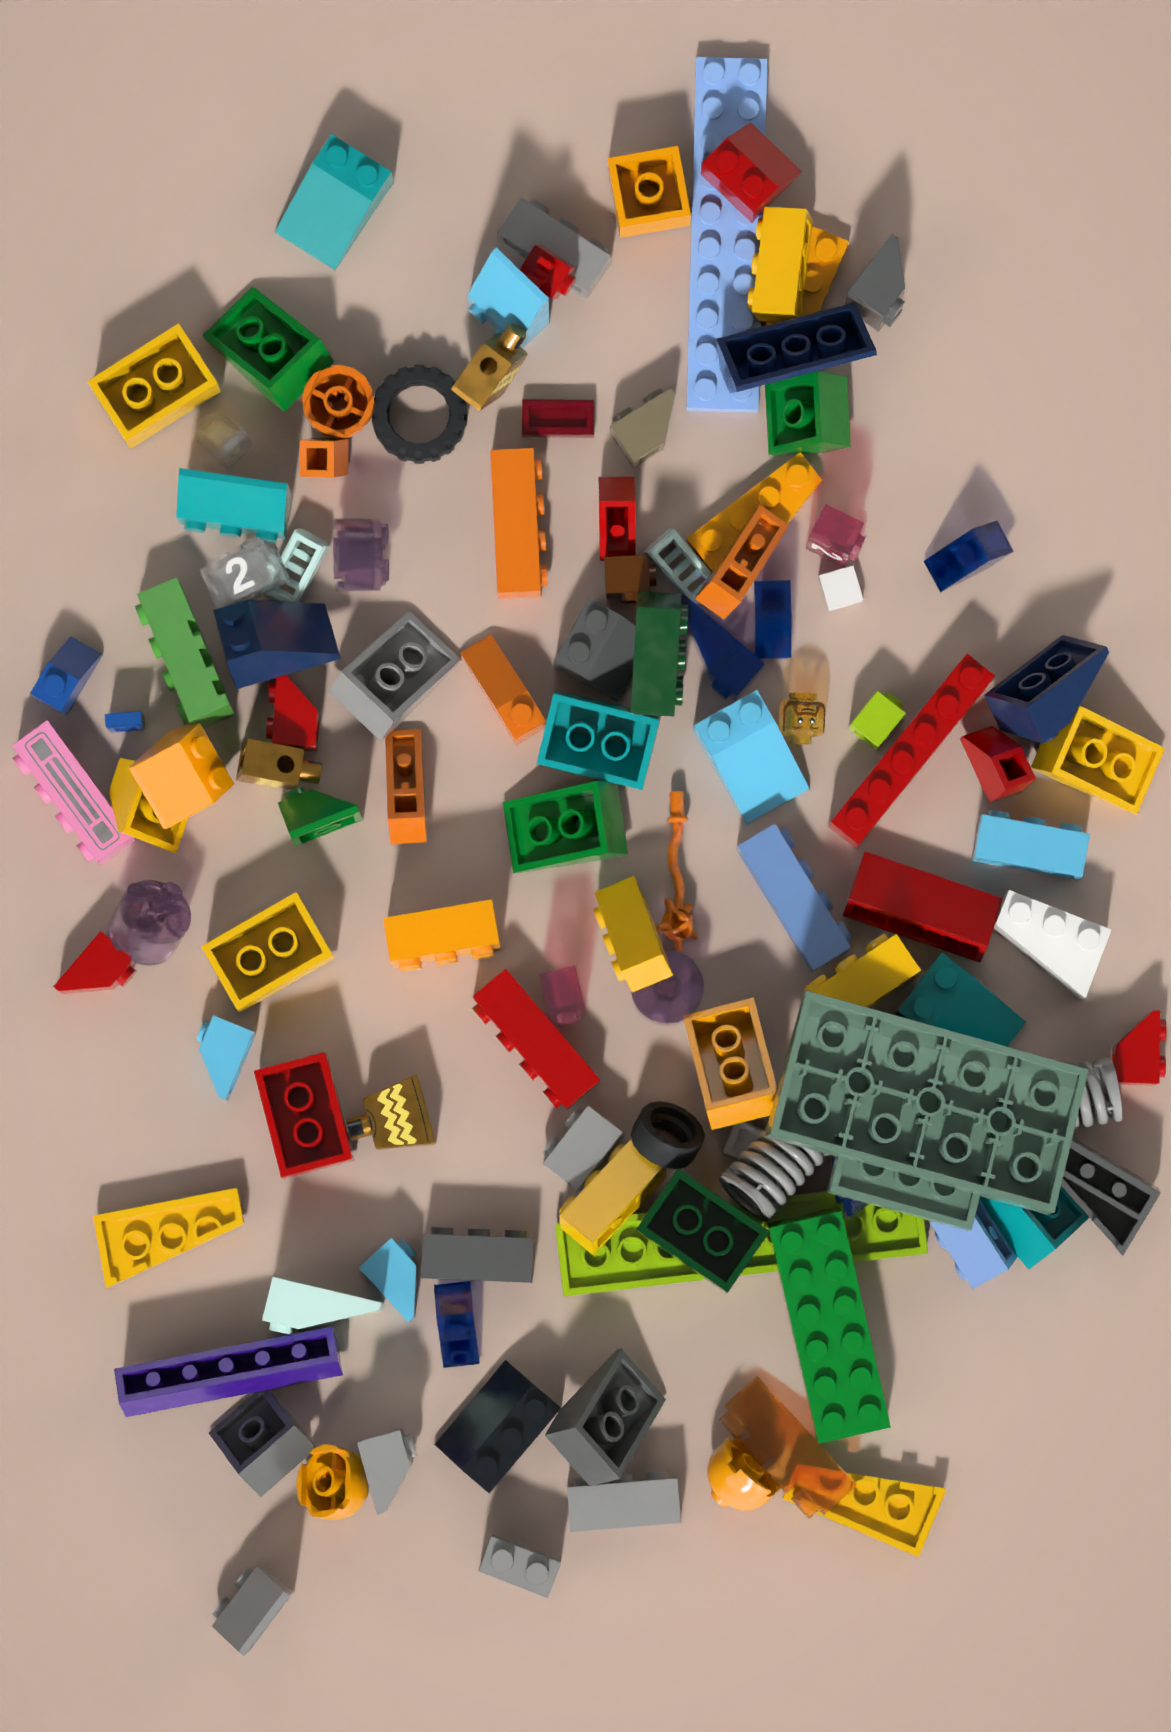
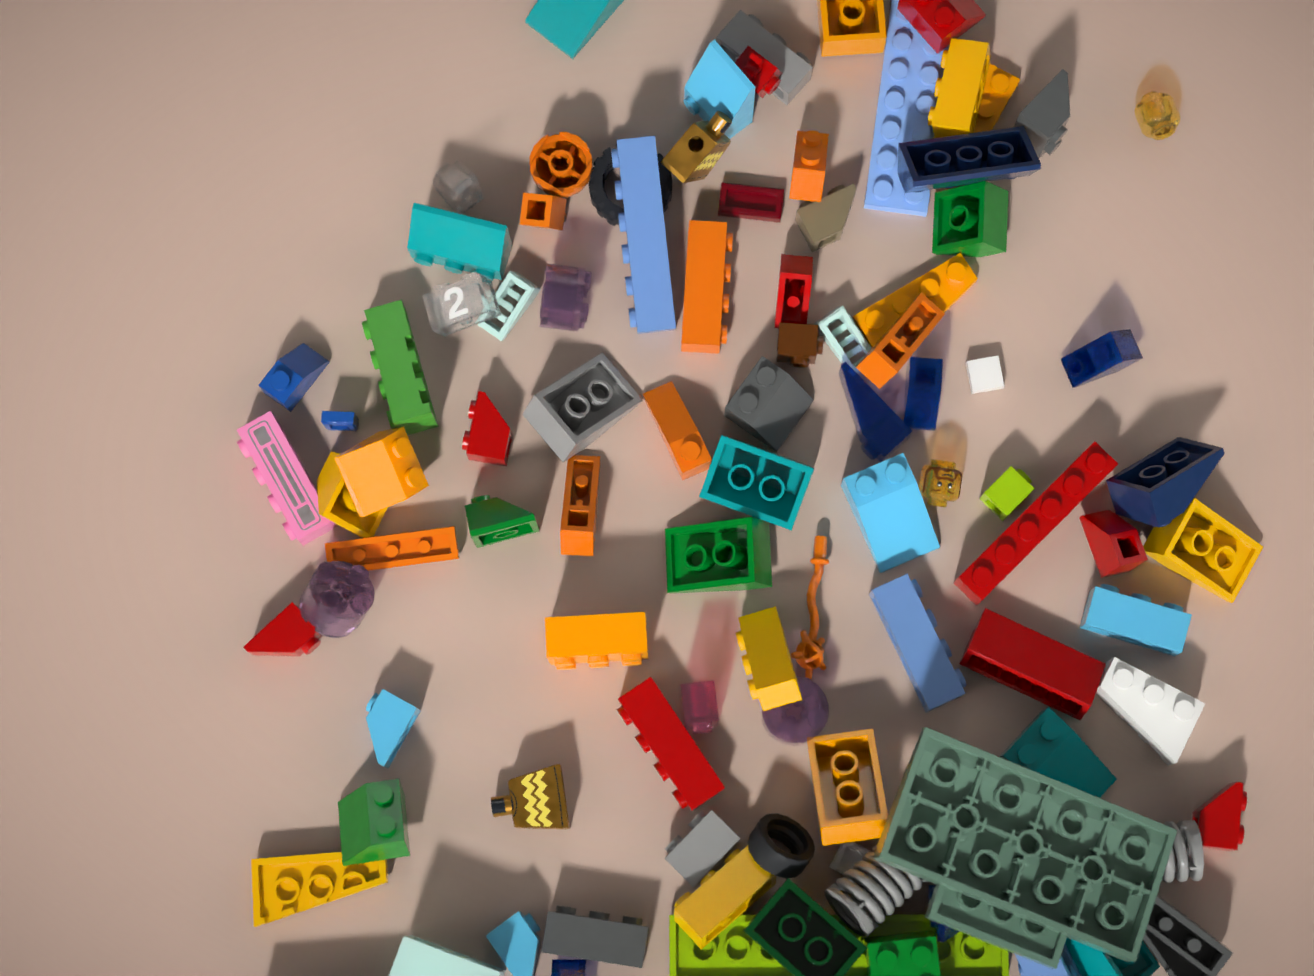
camera: 10 degrees right, 5 degrees down
(154, 386) = (403, 135): yellow brick -> none
(206, 858) = (396, 549): none -> orange plate
(221, 1162) = (374, 823): none -> green slope
(259, 765) = (454, 468): pearl gold torso -> none
(267, 952) = (439, 638): yellow brick -> none
(268, 347) = (506, 115): green slope -> none
(274, 638) = (479, 362): dark blue slope -> none
(304, 1115) = (453, 789): red brick -> none
(443, 474) = (646, 235): none -> medium blue brick
(618, 373) = (809, 166): none -> orange brick
(658, 653) = (818, 411): dark green brick -> none
(836, 536) = (987, 326): clear pink brick -> none
(871, 976) = (983, 721): yellow brick -> none
(1007, 268) = (1157, 115): none -> clear yellow head

